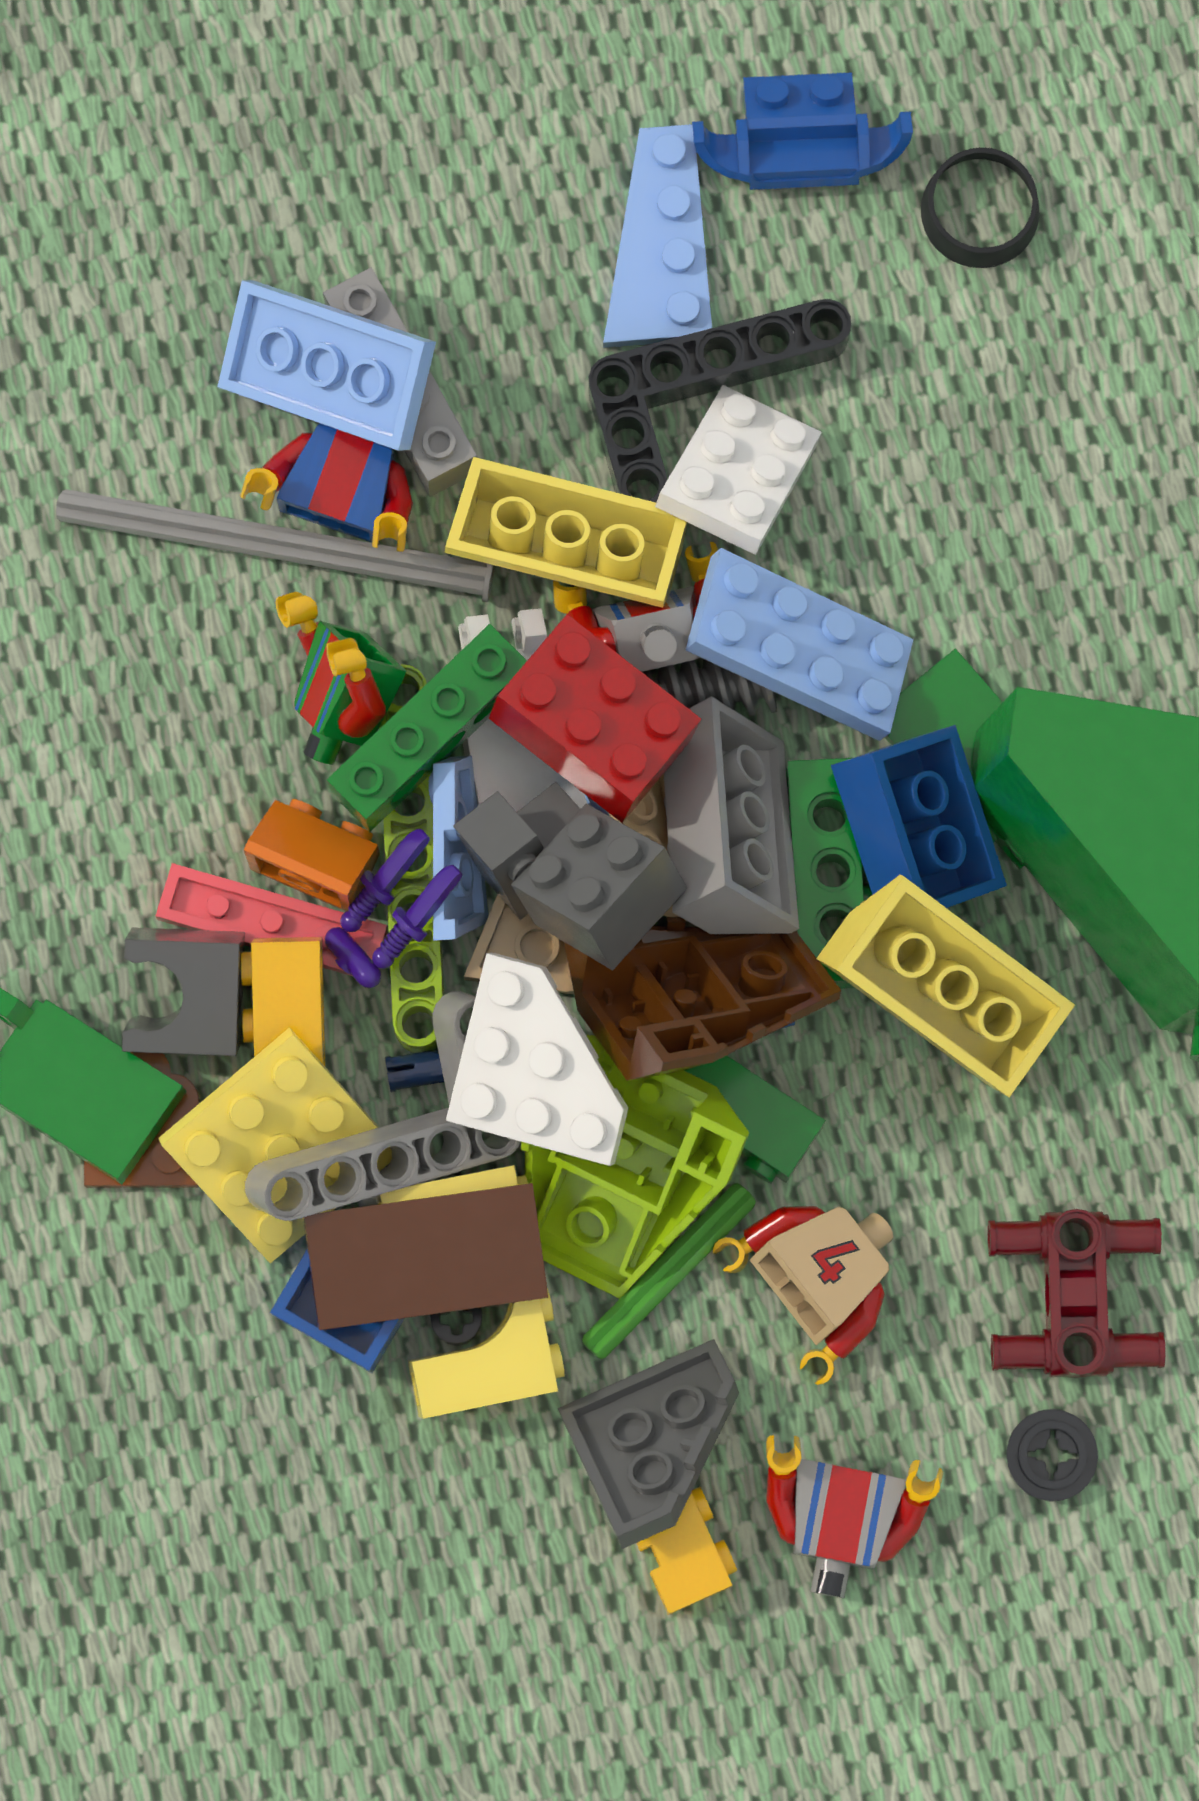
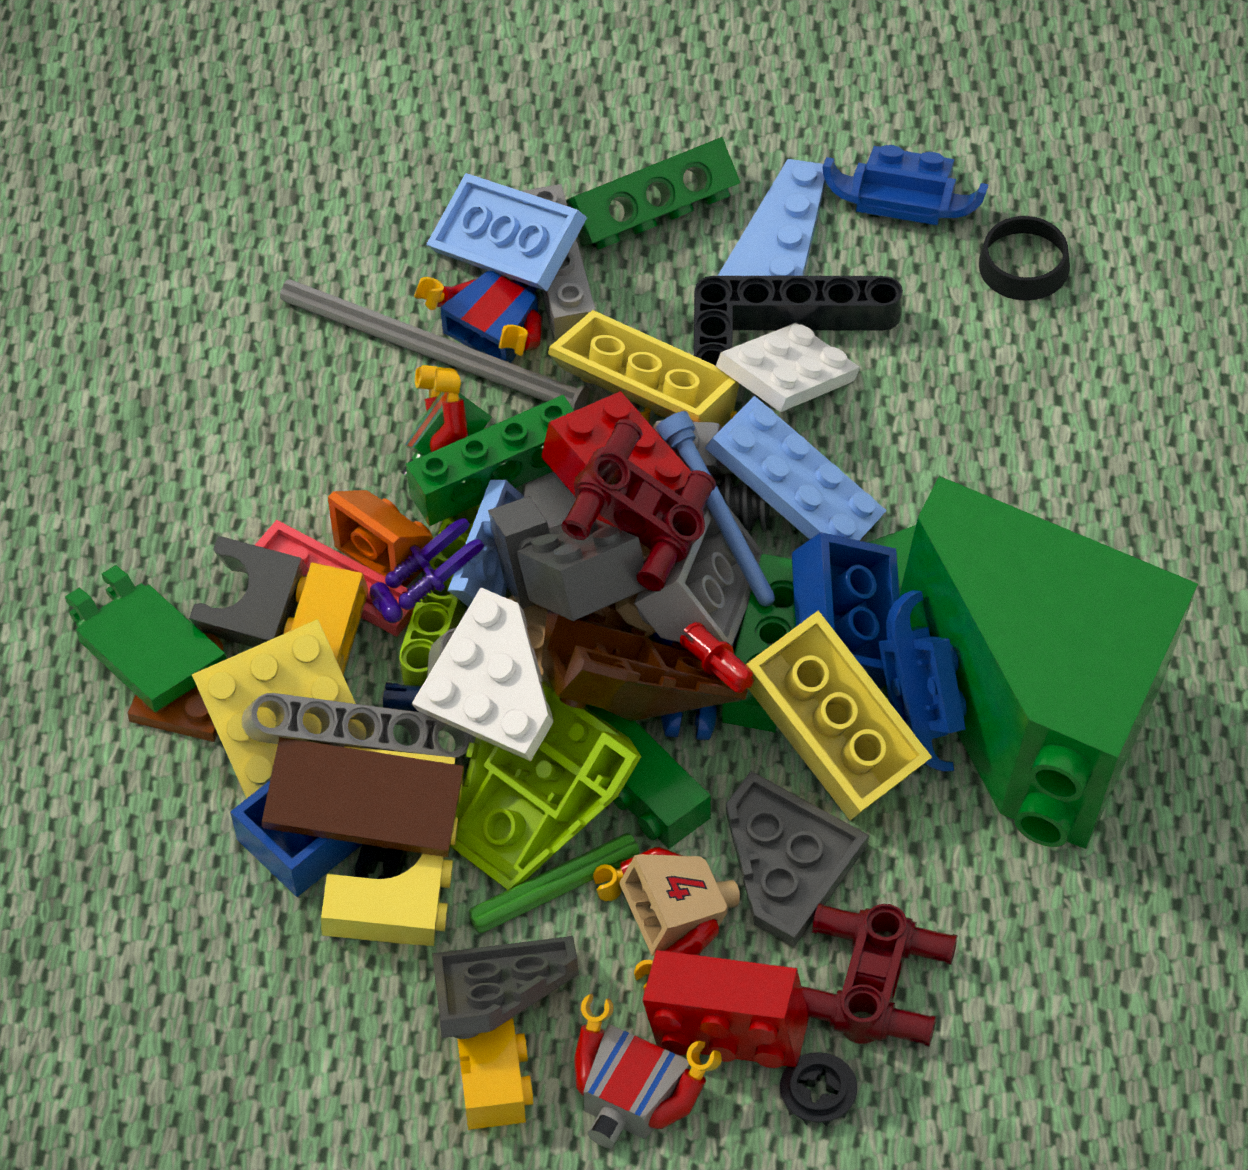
camera: 20 degrees right, 25 degrees down
(458, 241) = (709, 164): none -> green brick
(651, 799) = (639, 505): none -> dark red piece
(654, 652) = (678, 433): none -> medium blue piece
(795, 962) = (717, 657): none -> red axle
(929, 1408) = (730, 1005): none -> red brick
(931, 1159) = (788, 855): none -> dark grey plate
(1038, 909) = (922, 678): none -> blue plate

